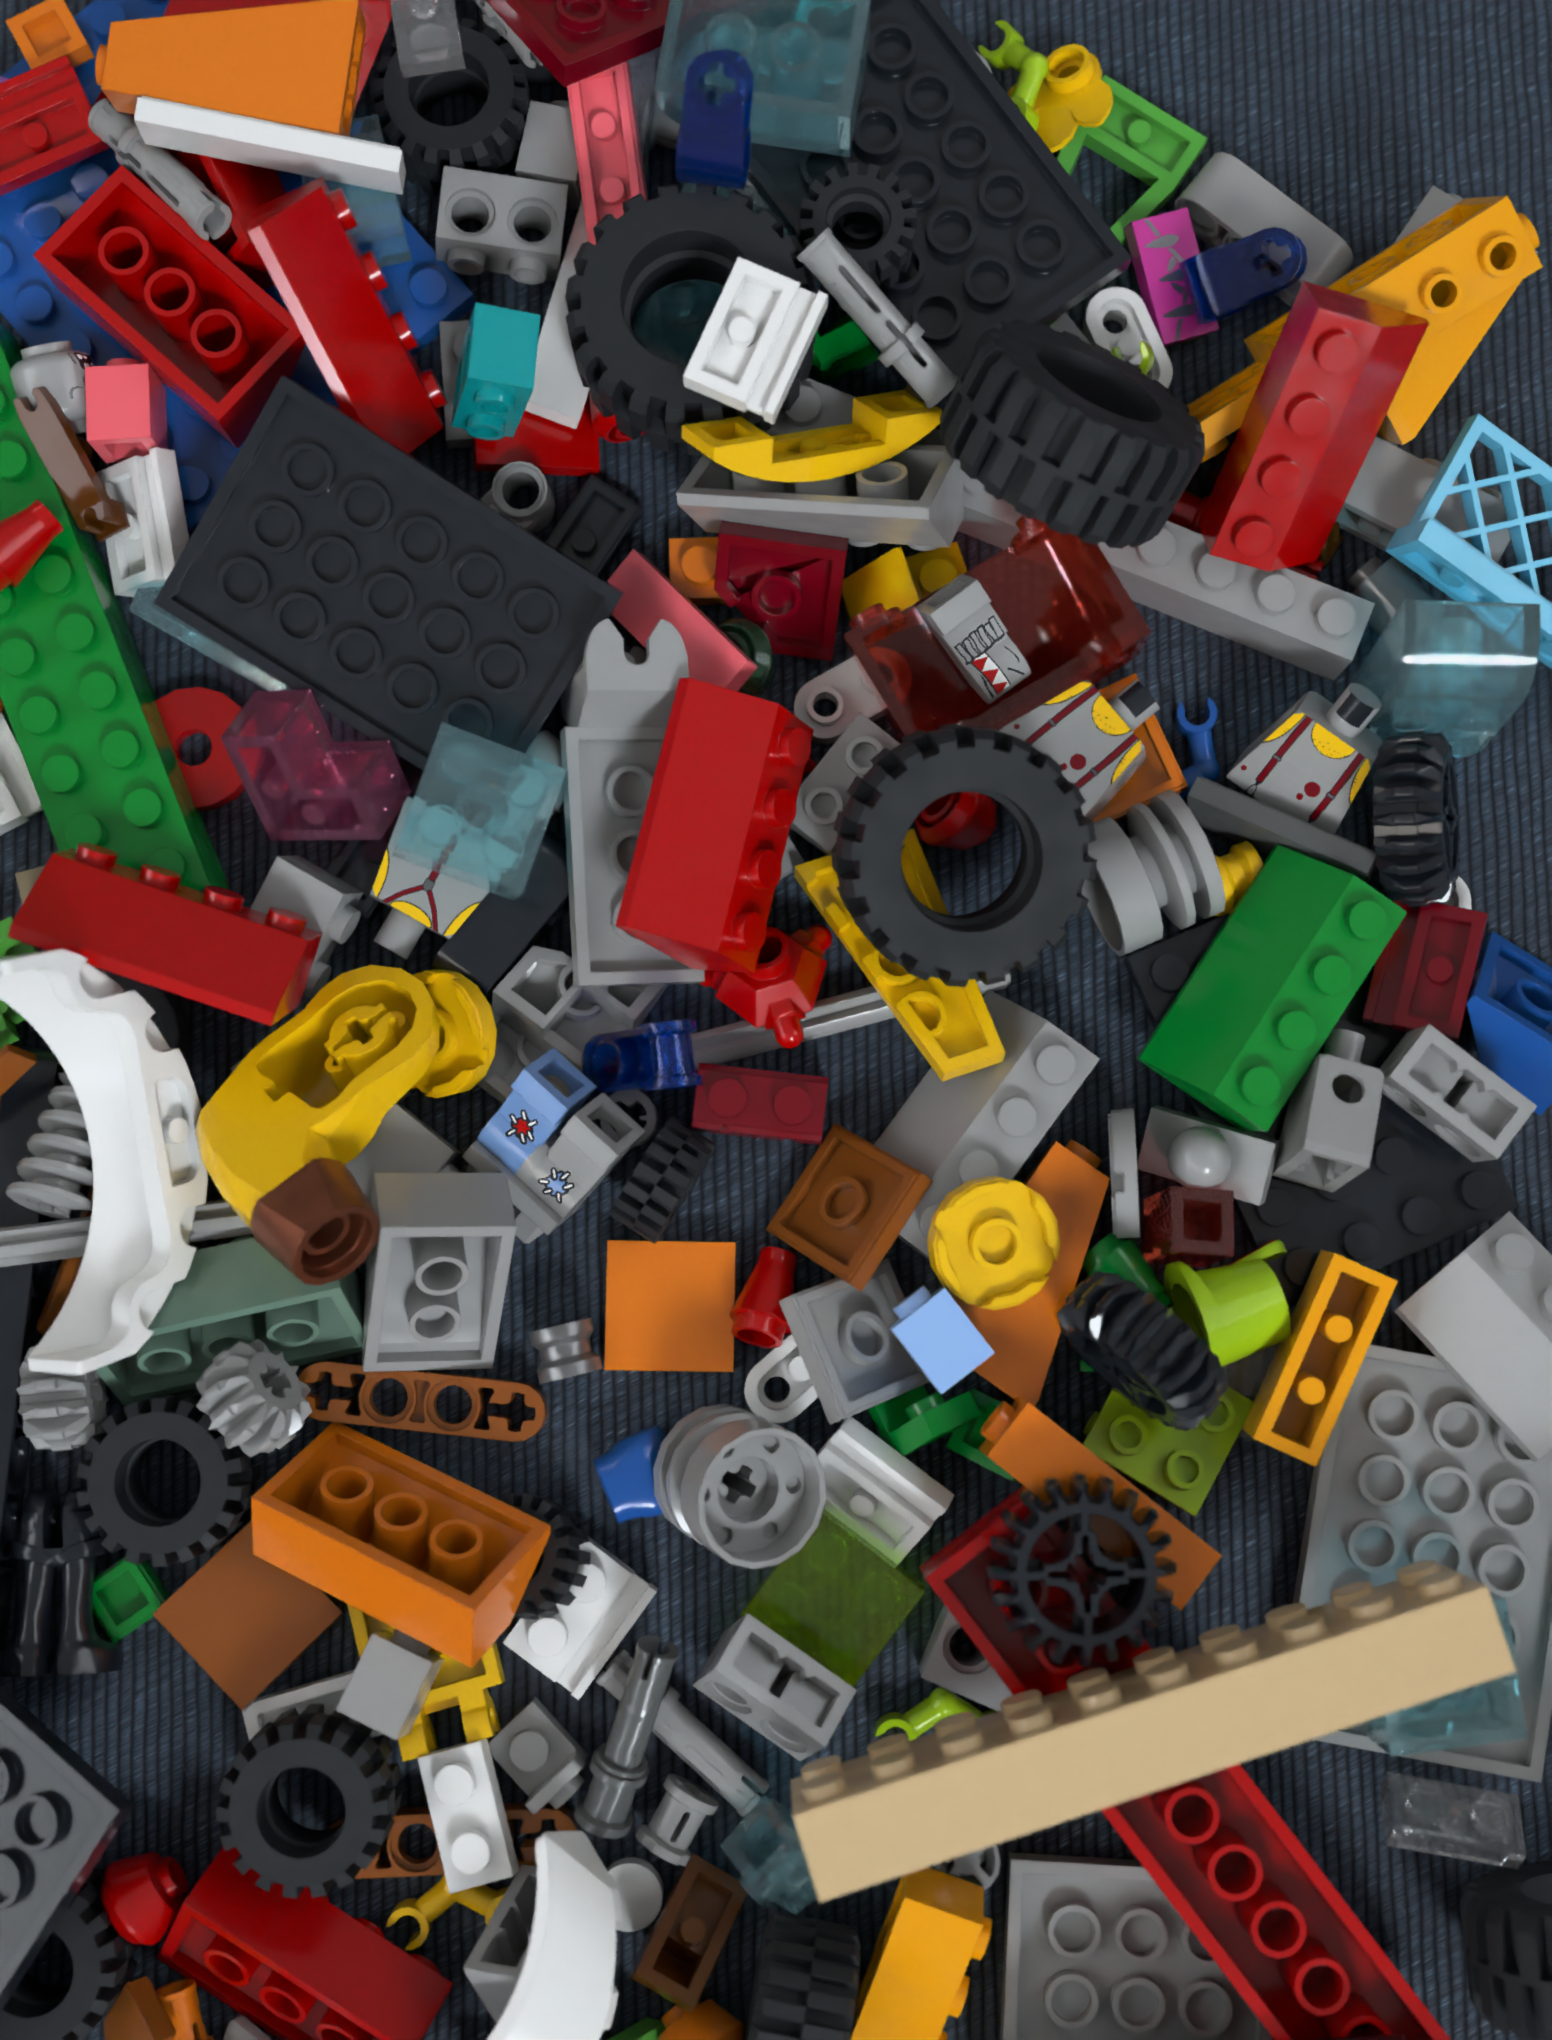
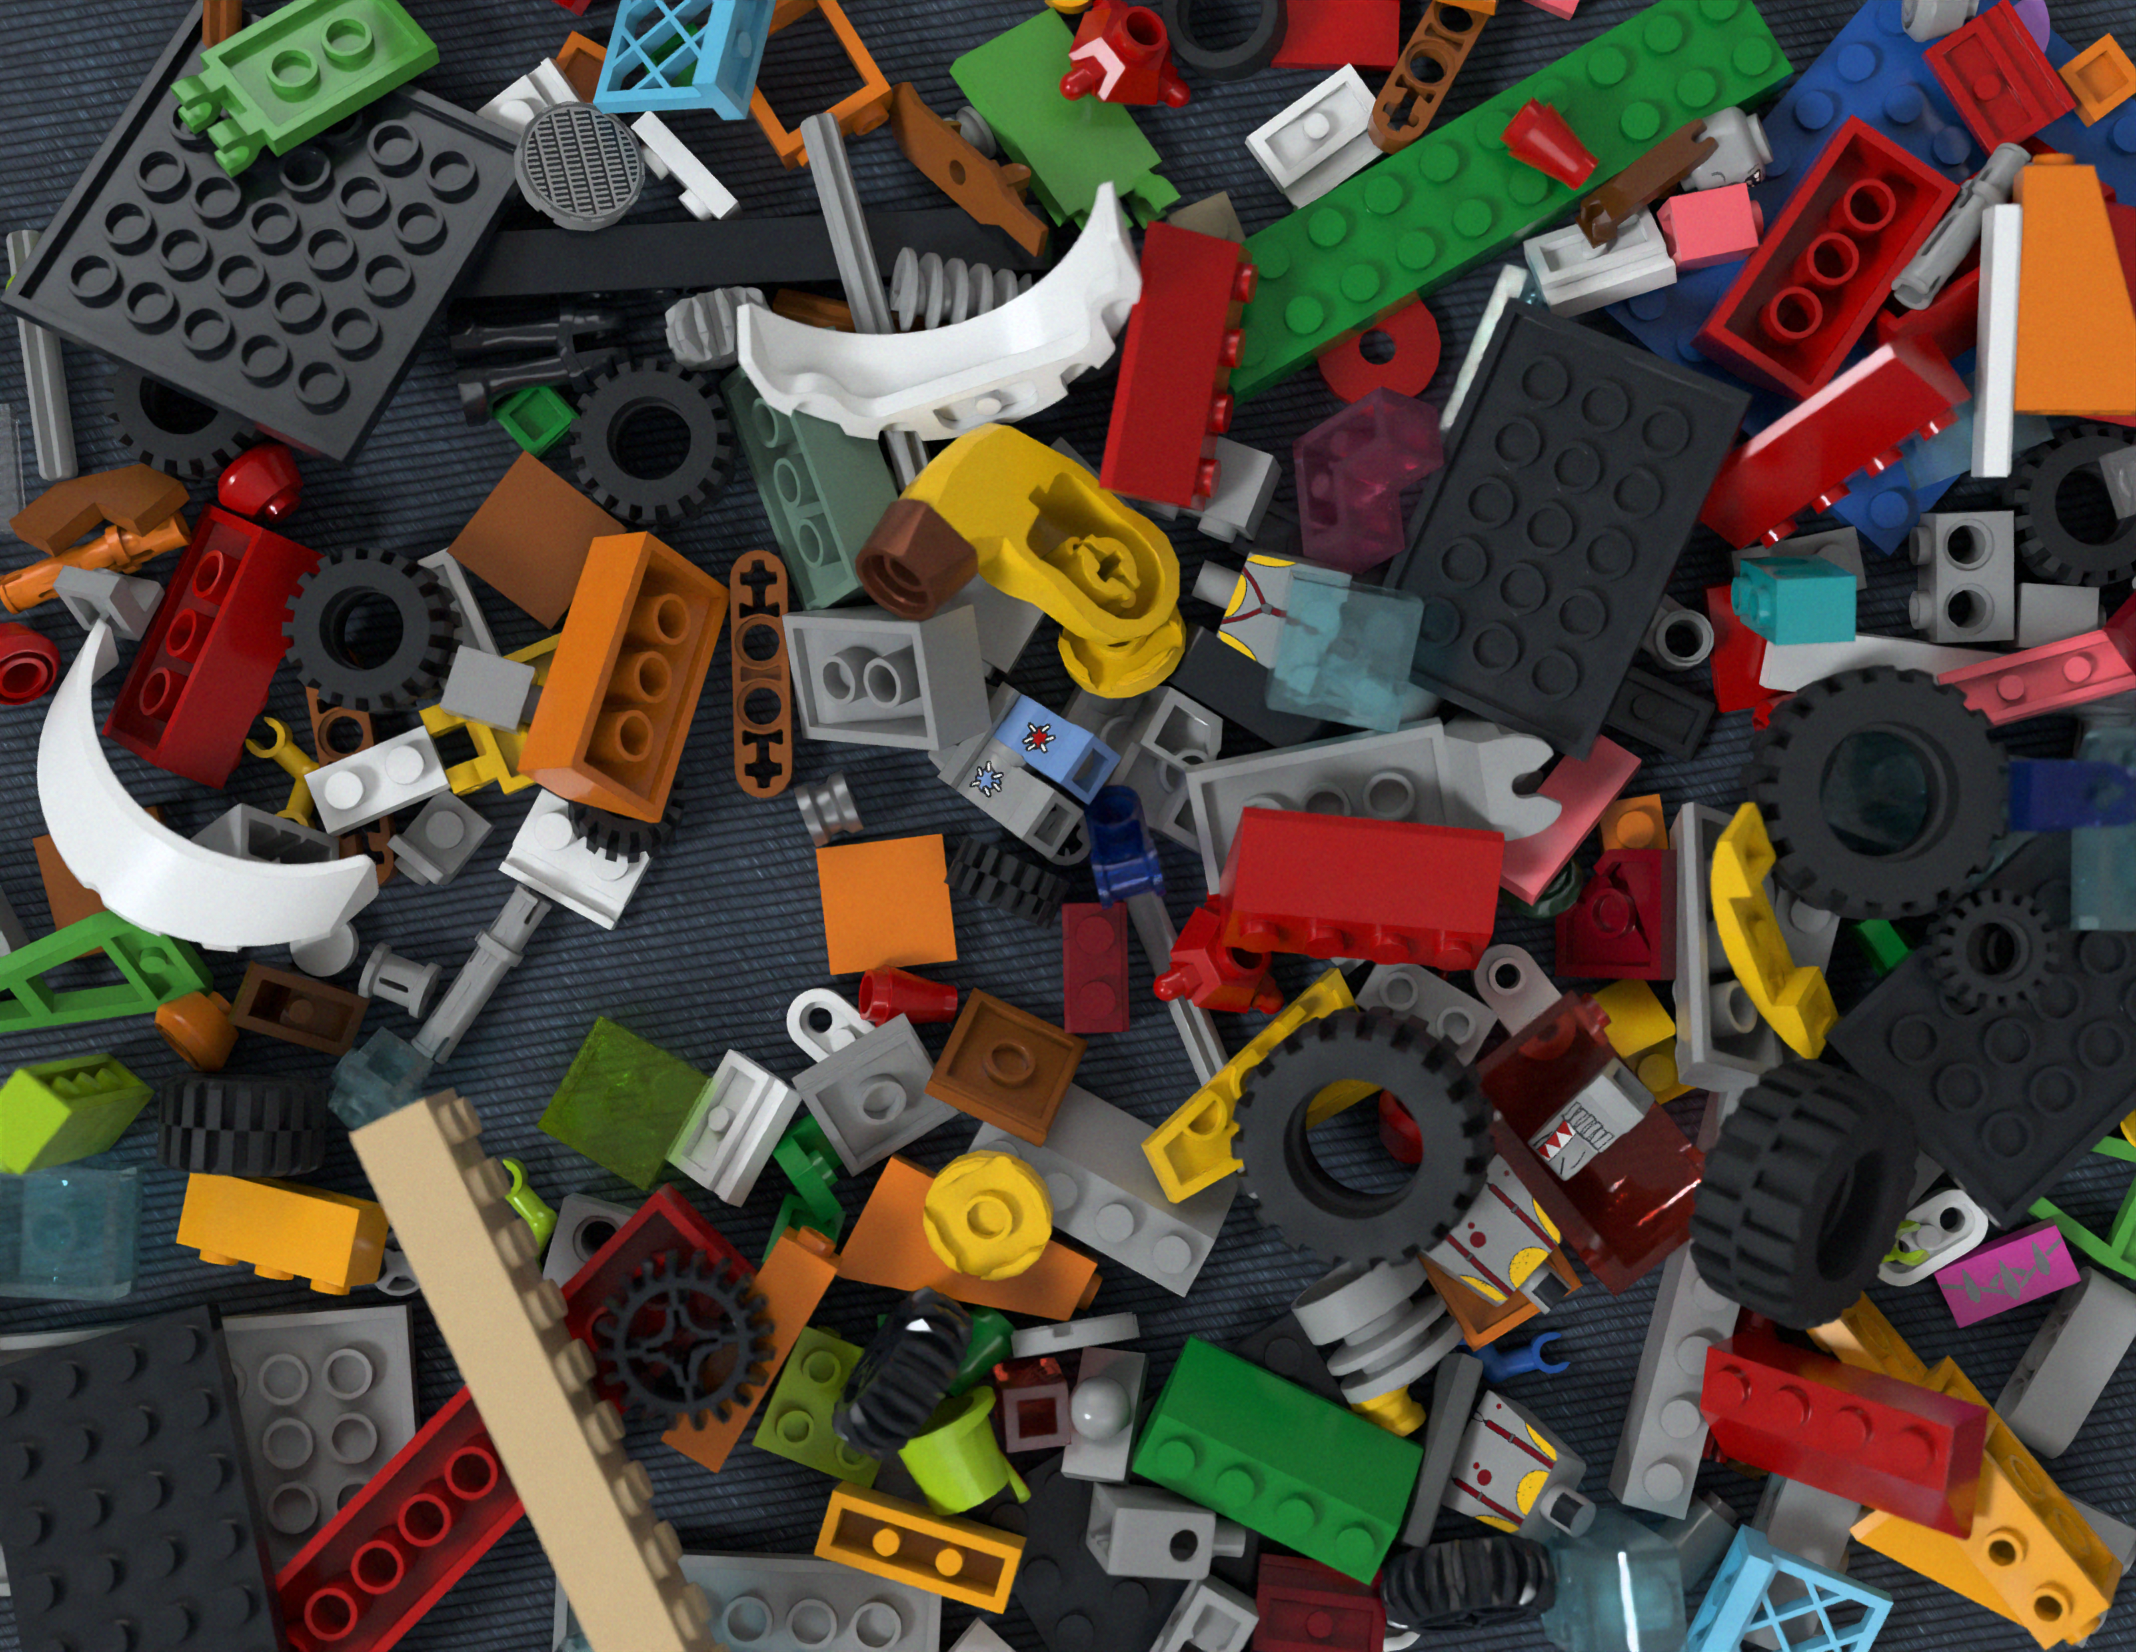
camera: 75 degrees right, 5 degrees up
(253, 1398) = (742, 516): light grey gear -> none
(620, 1763) = (445, 919): dark grey pin -> none
(628, 1474) = (720, 904): blue piece -> none
(755, 340) = (1849, 865): white plate -> none
(763, 1505) = (722, 998): light grey wheel -> none
(774, 1687) = (535, 1057): light grey brick -> none
(878, 318) = (1846, 1042): light grey pin -> none
(939, 1337) = (889, 1174): light blue brick -> none
(1232, 277) = (2010, 1338): clear blue piece -> none

